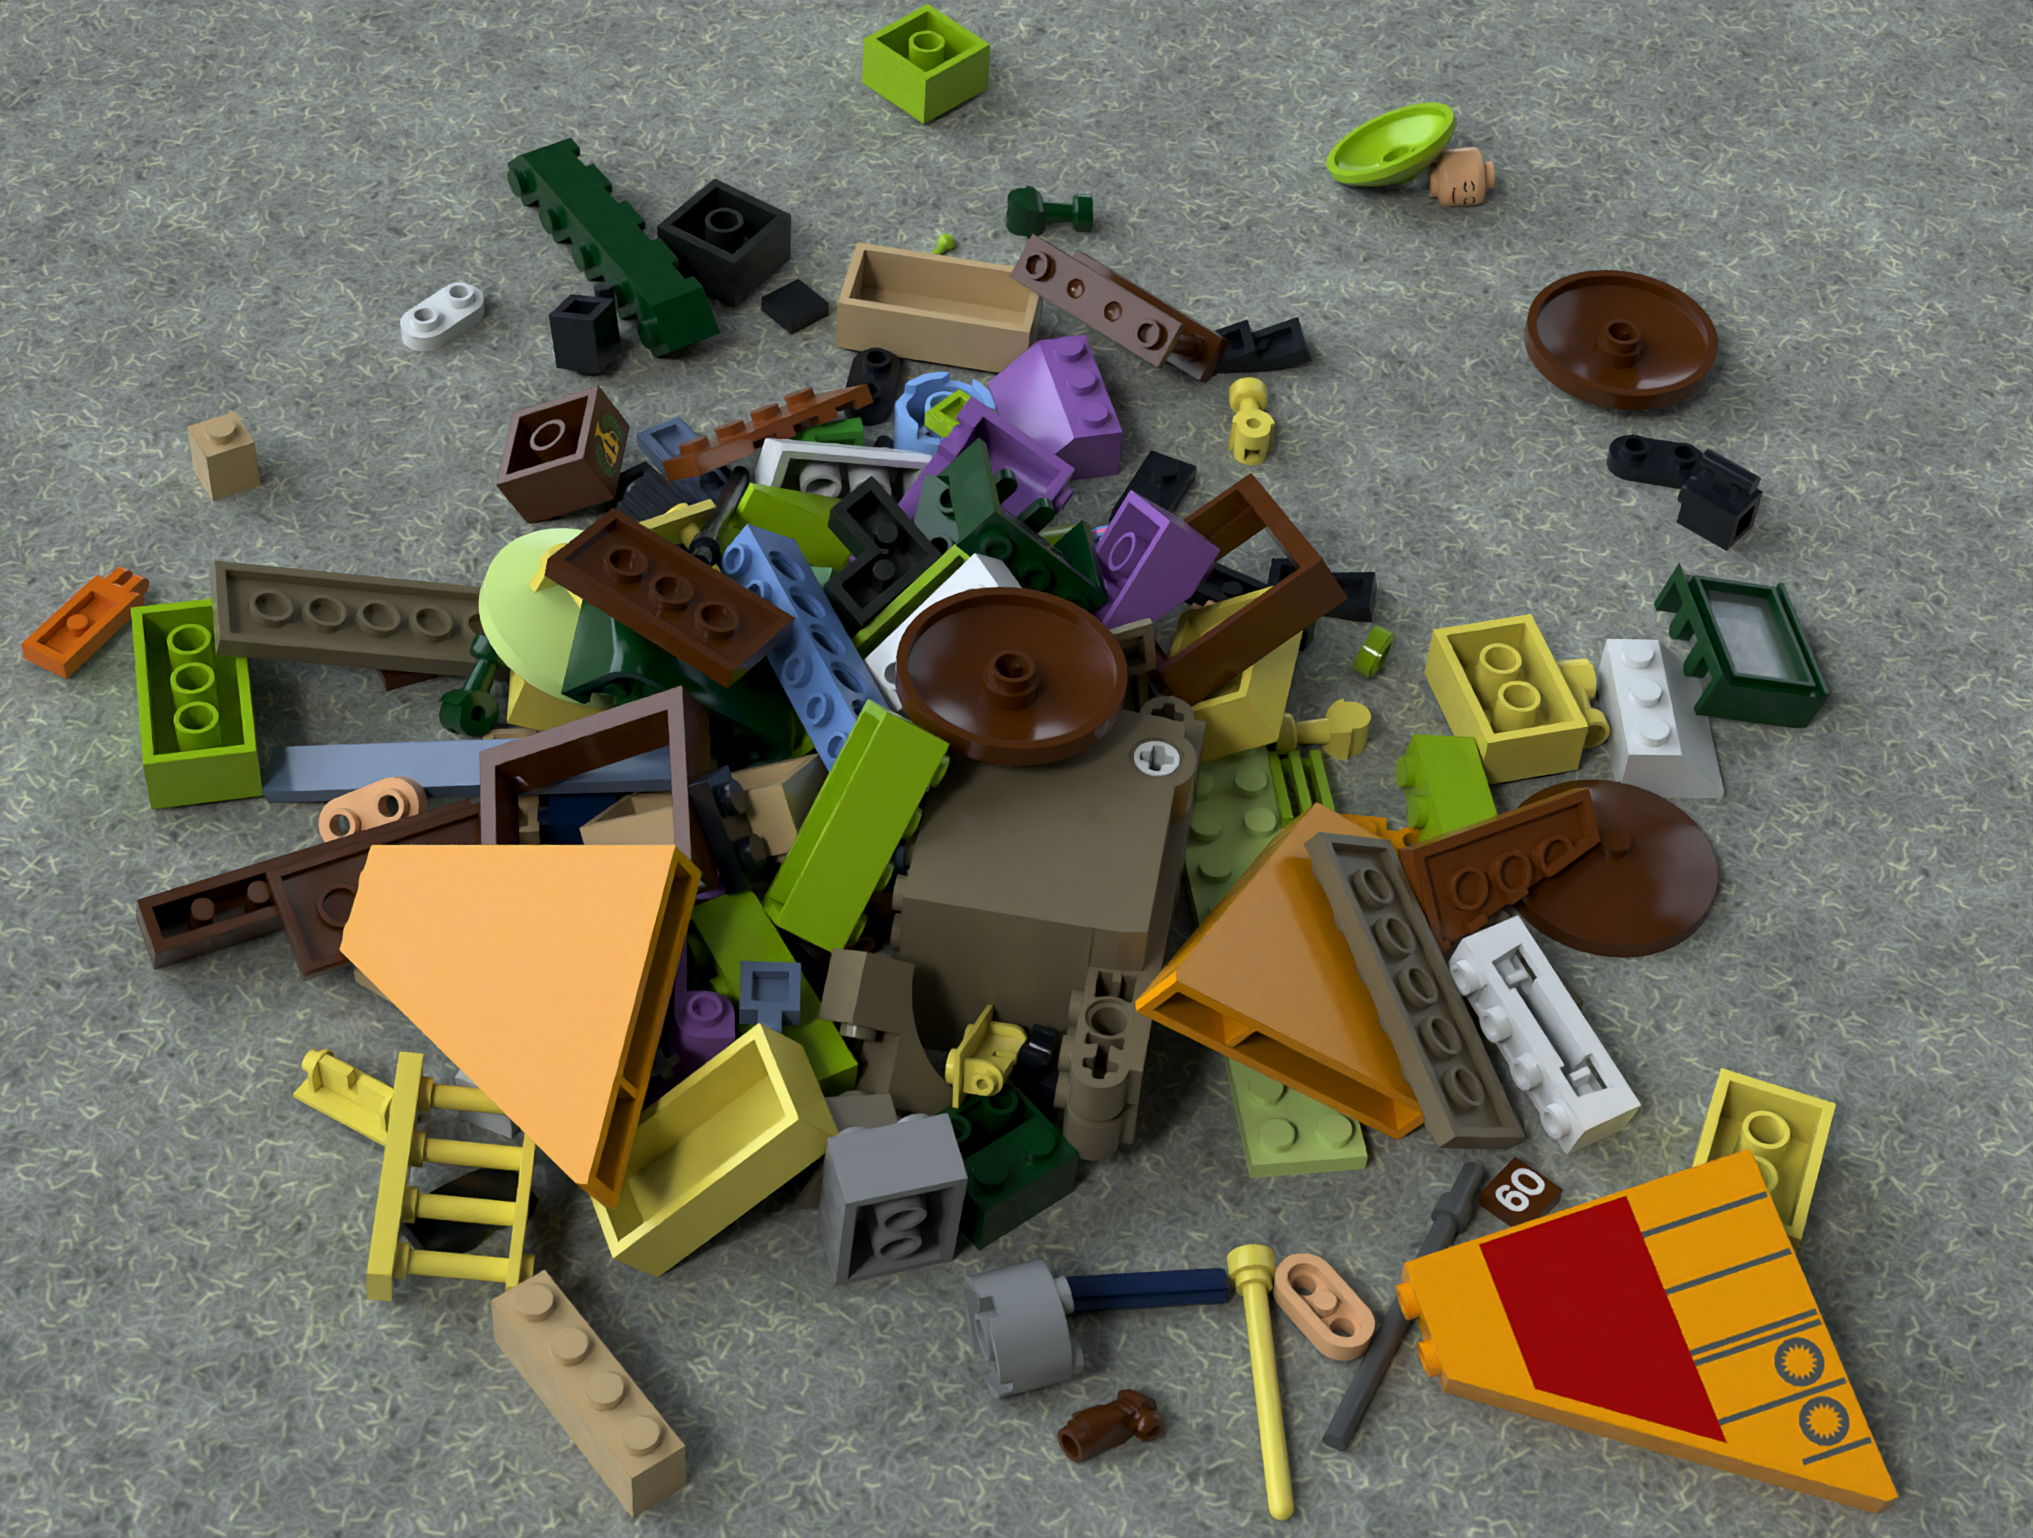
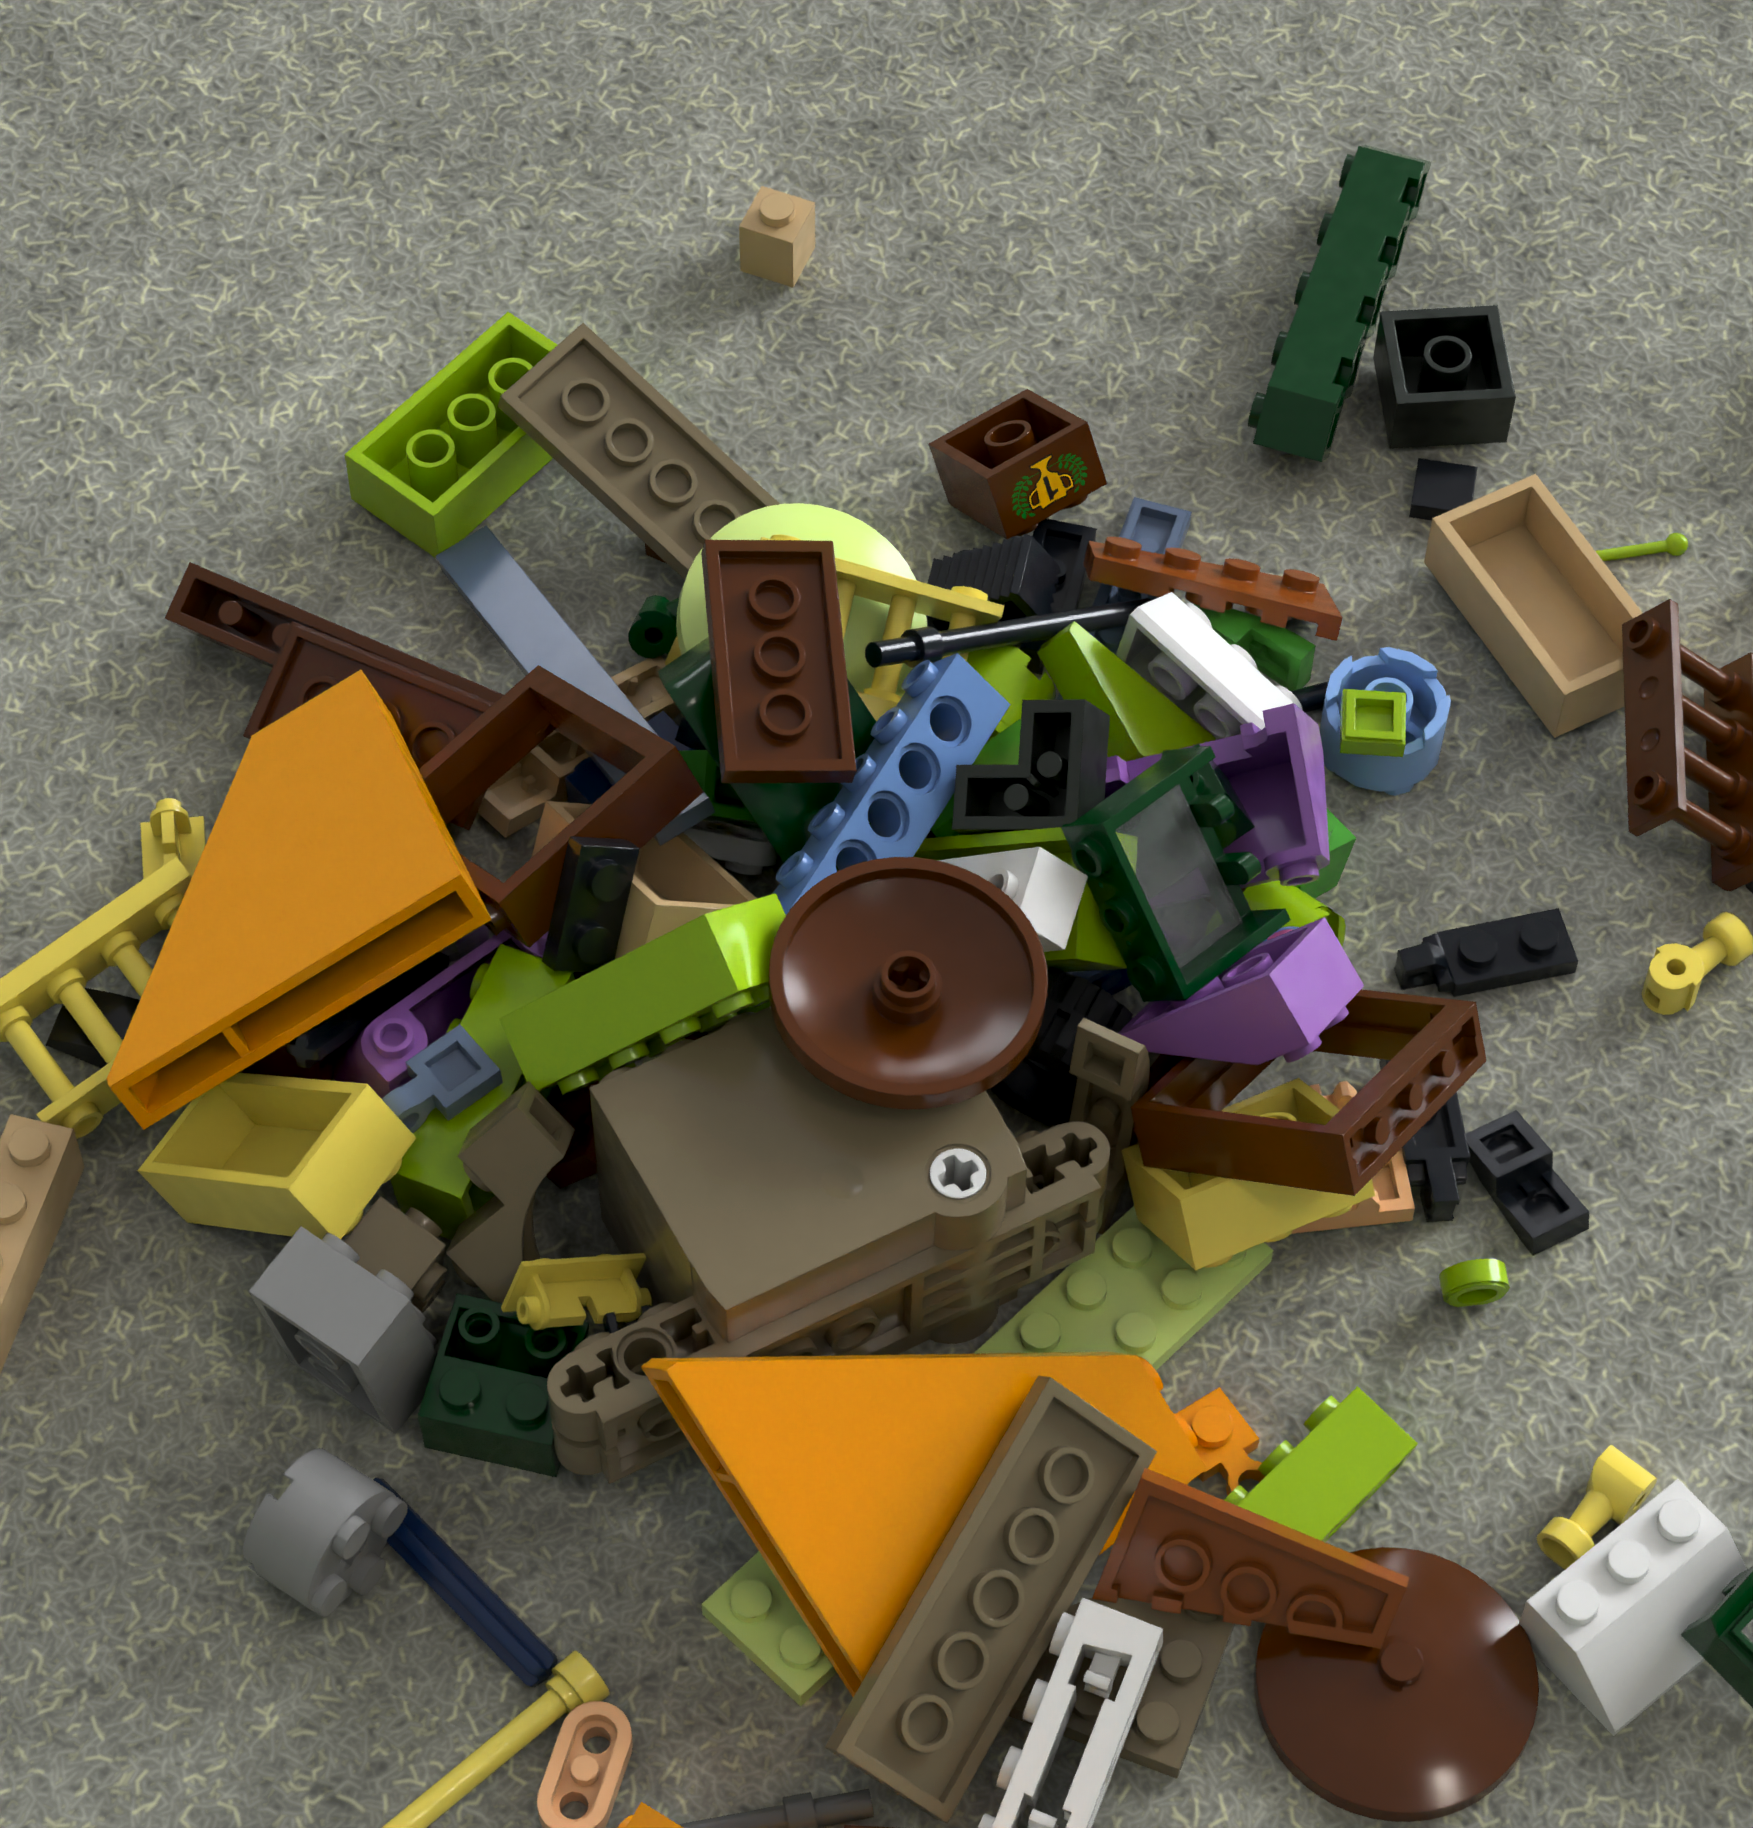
camera: 55 degrees right, 10 degrees up
(85, 622) = (483, 296): orange hinge -> none
(368, 806) = (470, 647): light nougat plate -> none
(442, 317) = (1130, 251): white plate -> none
(586, 331) = (1208, 364): black brick -> none
(881, 373) = (1404, 622): black plate -> none
(1062, 404) = (1520, 799): medium lavender slope -> none
(1111, 1424) = (303, 1680): reddish brown arm -> none
(1297, 768) = (1252, 1312): lime tile -> none
(1339, 733) = (1338, 1322): light yellow leg -> none
(1507, 694) = (1510, 1440): light yellow brick -> none

